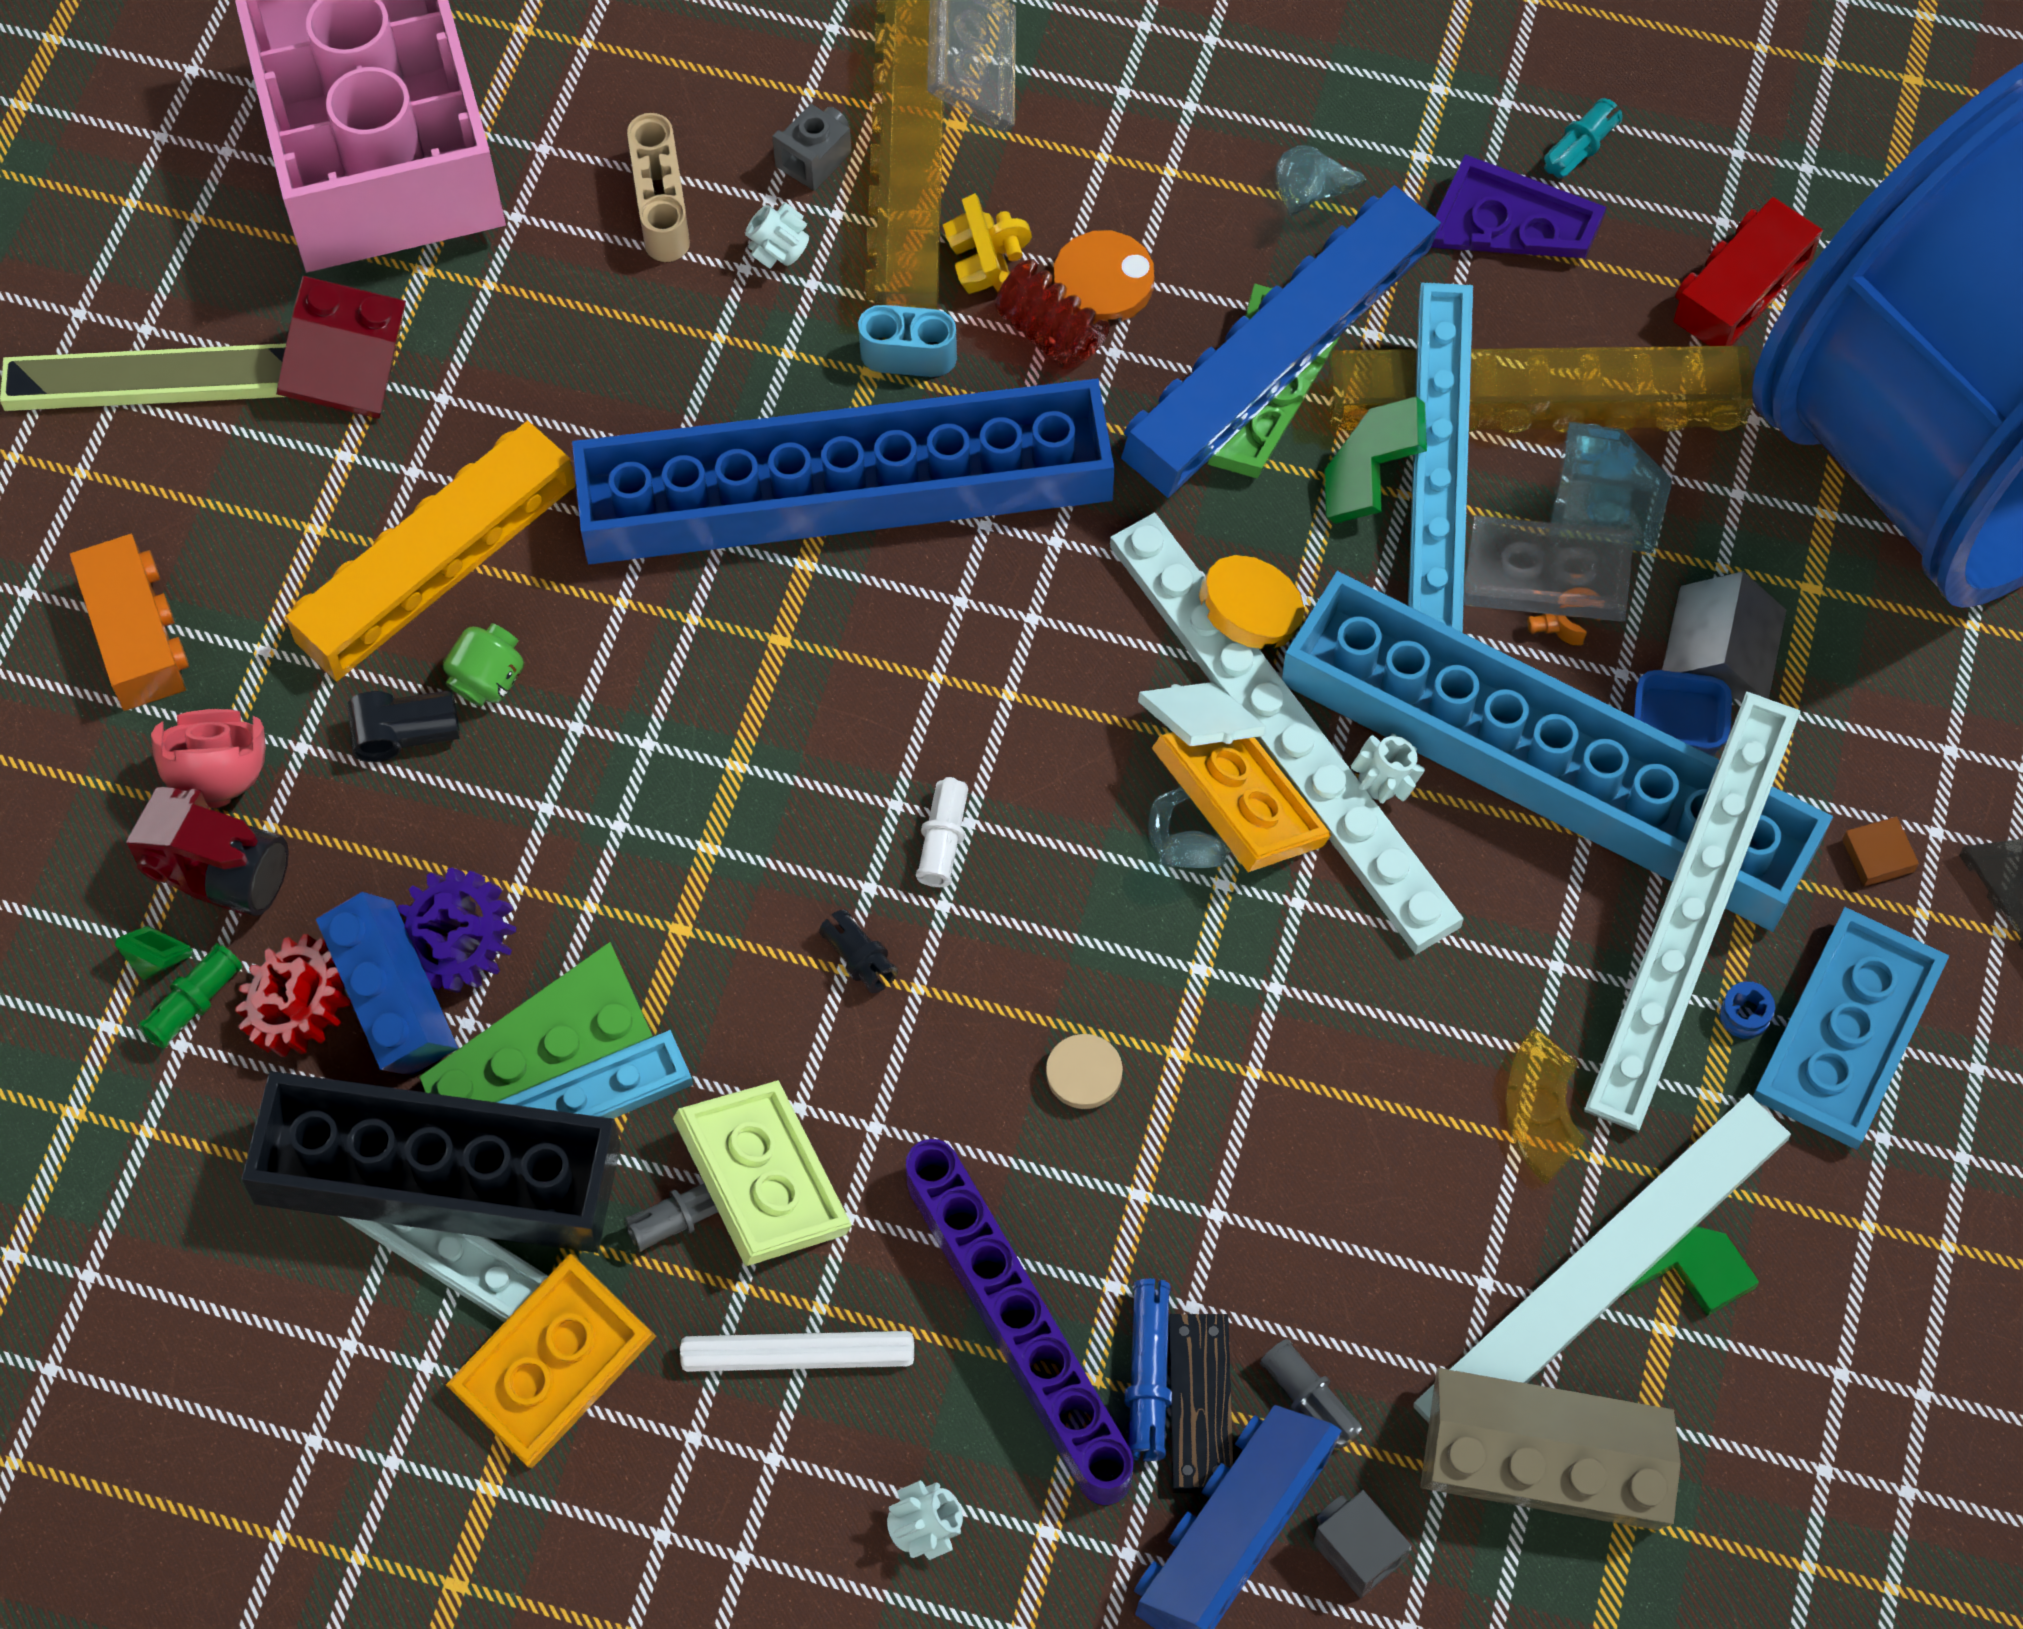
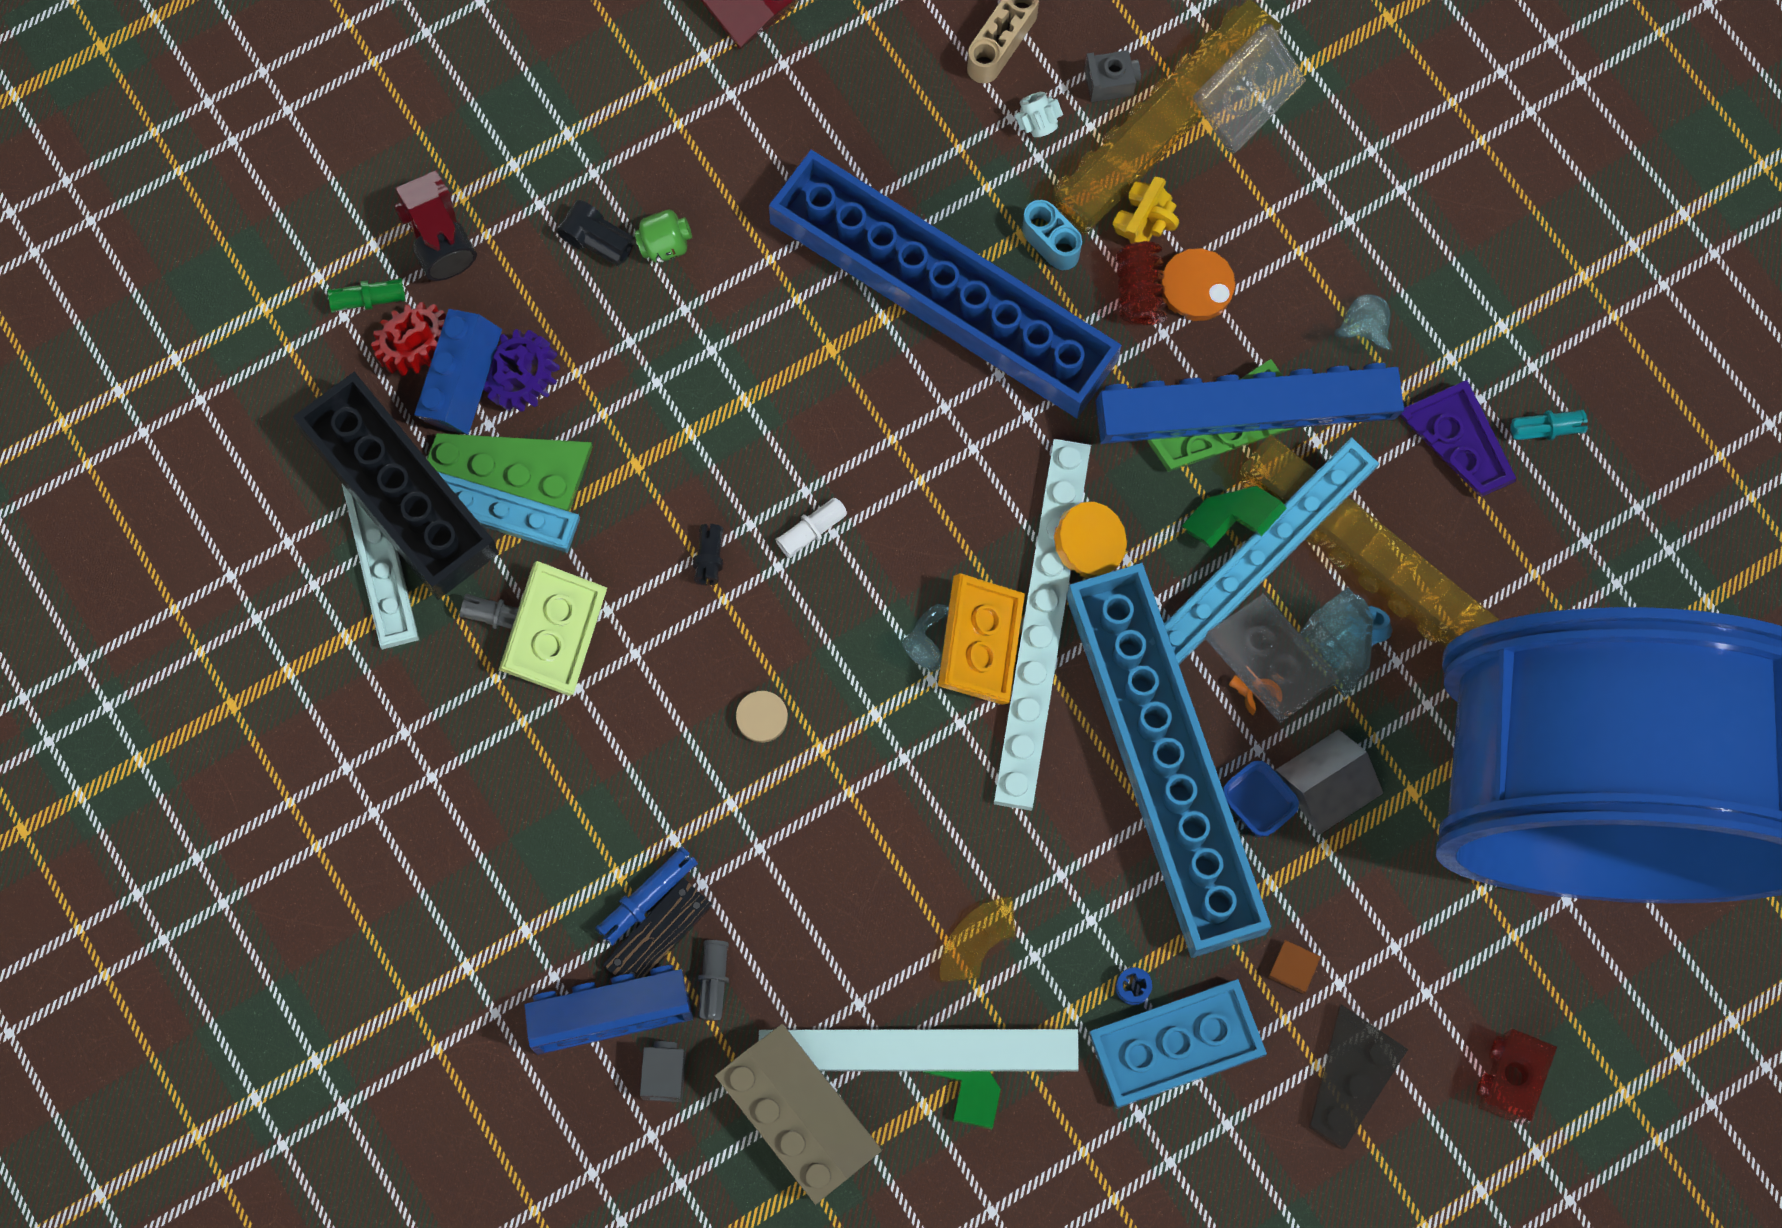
camera: 40 degrees right, 10 degrees up
(130, 621) = (510, 62): orange brick -> none
(151, 951) = (370, 254): green slope -> none
(210, 753) = (482, 171): coral cylinder -> none
(430, 550) = (694, 148): light orange brick -> none
(550, 1361) = (368, 634): light orange tile -> none
(797, 1351) = (489, 734): white axle -> none
(924, 1520) = (467, 872): light aqua gear -> none
(1021, 1346) = (602, 795): dark purple beam -> none
(1201, 714) = (1000, 579): light aqua piece -> none
(1388, 768) = (1078, 685): light aqua gear -> none
(1692, 912) = (1145, 909): light aqua tile -> none
(1746, 274) = (1559, 583): red brick -> none

